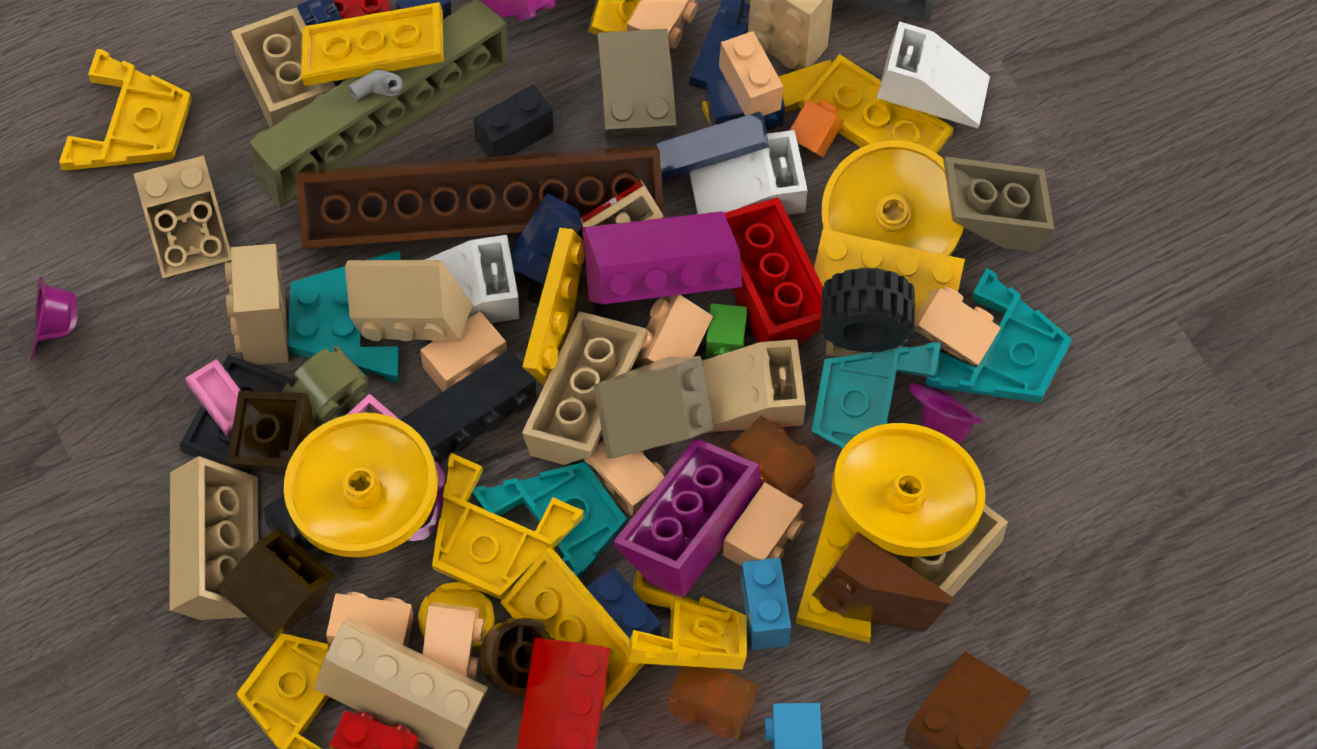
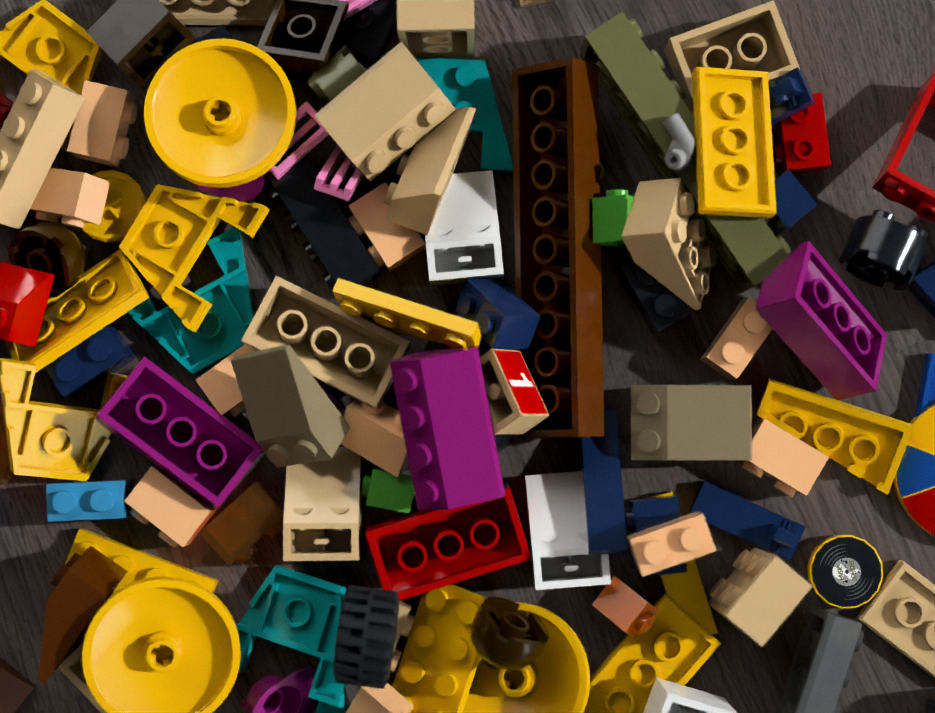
camera: 100 degrees right, 25 degrees up
(356, 337) = (385, 112): none -> tan slope
(411, 389) = (327, 170): none -> bright pink tile
(447, 141) = (610, 218): none -> bright green brick
(461, 96) = (670, 239): none -> tan slope
(553, 53) = (737, 340): none -> light nougat brick
(854, 207) = (506, 636): none -> dark brown cylinder

